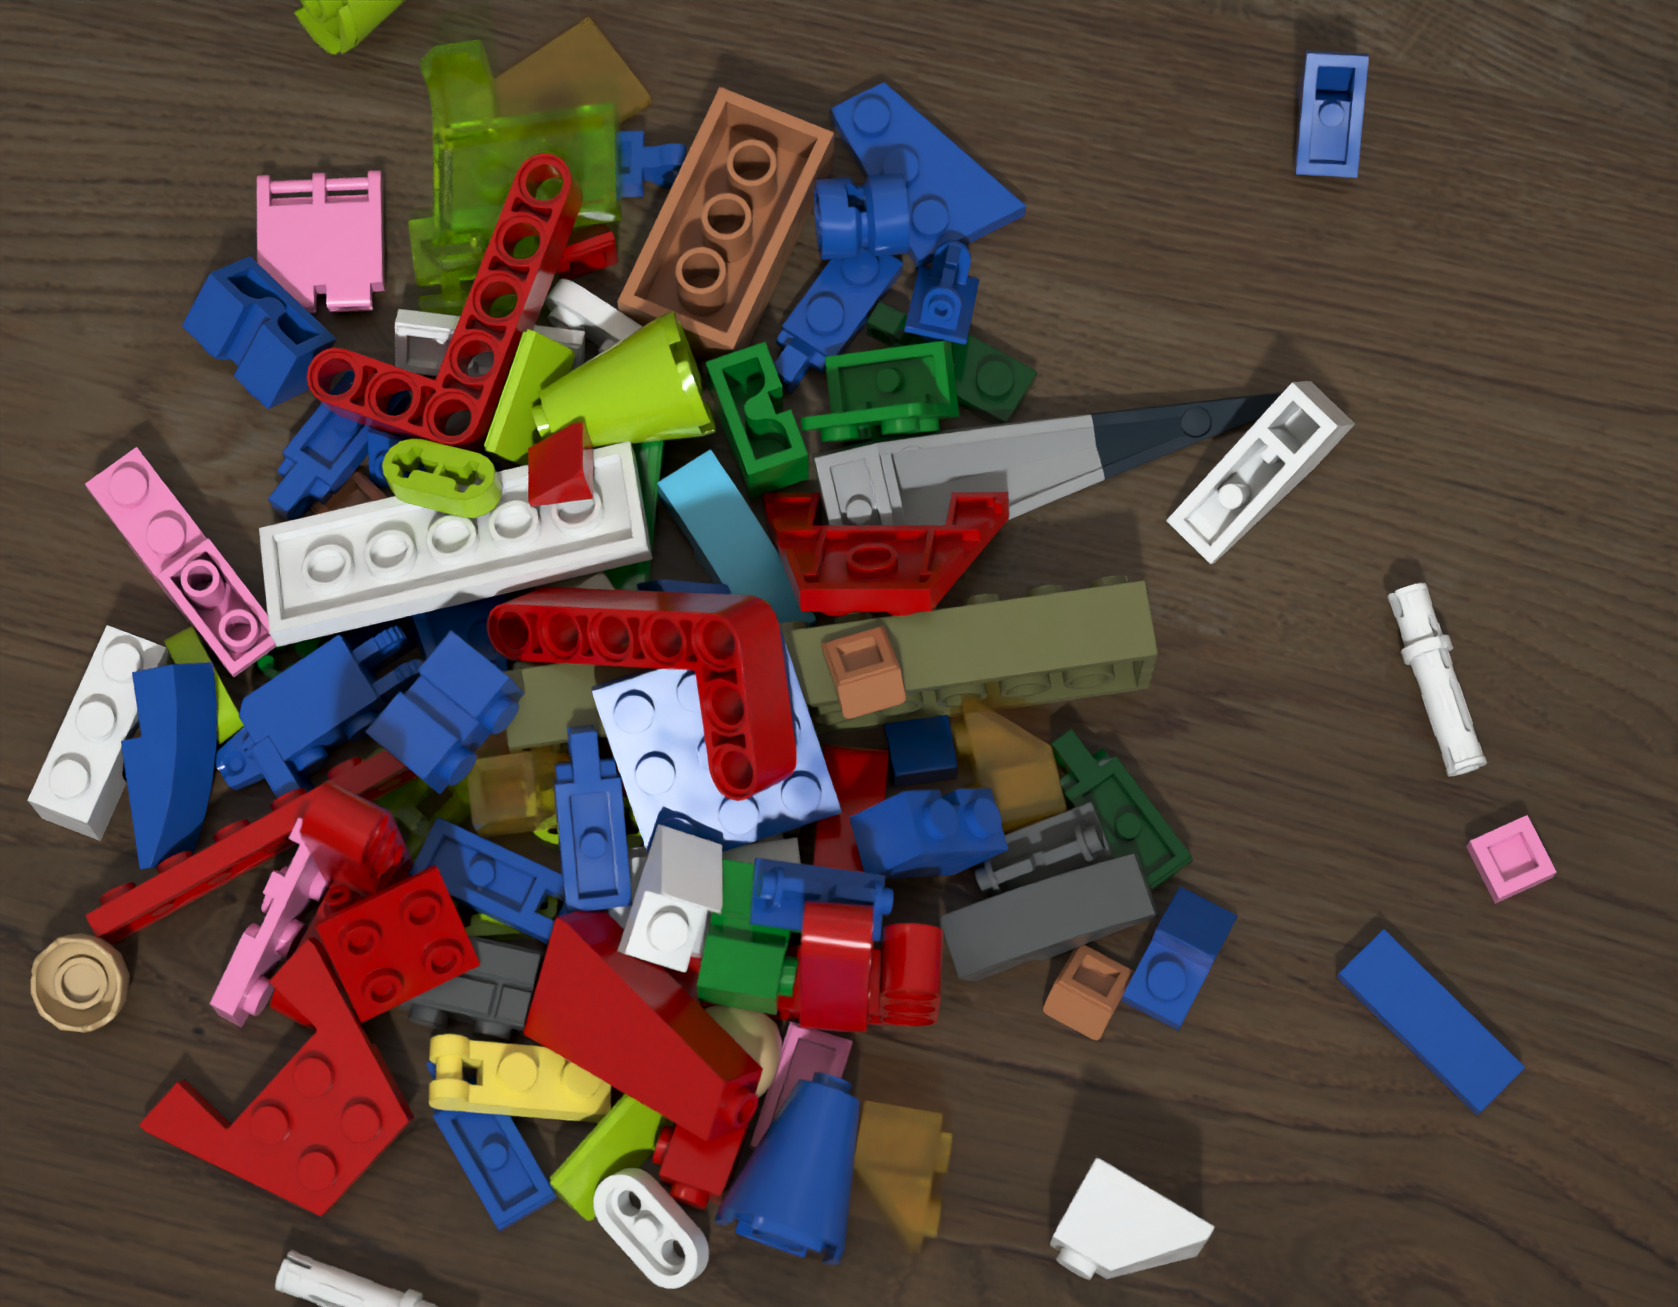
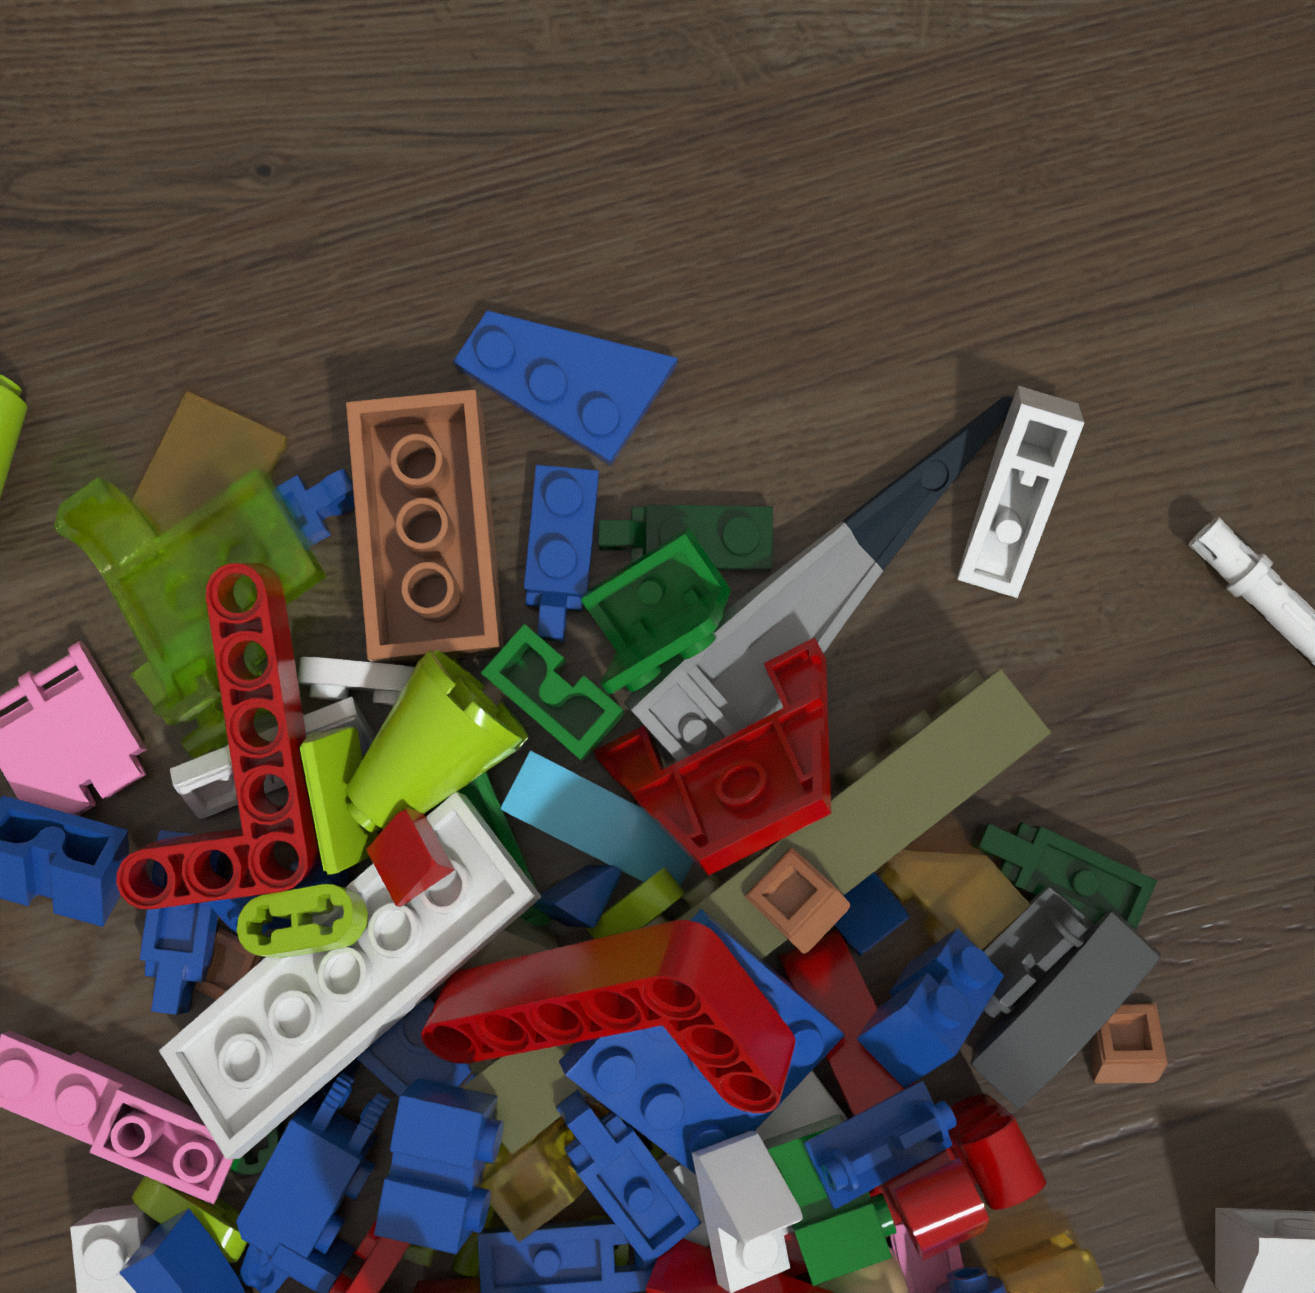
camera: 30 degrees left, 10 degrees up
(588, 252) = (310, 615): red slope -> none
(861, 216) = (543, 453): blue wheel -> none
(944, 296) = (656, 487): blue hinge -> none
(1179, 958) = (1191, 969): blue slope -> none
(1330, 113) = (903, 127): slope -> none

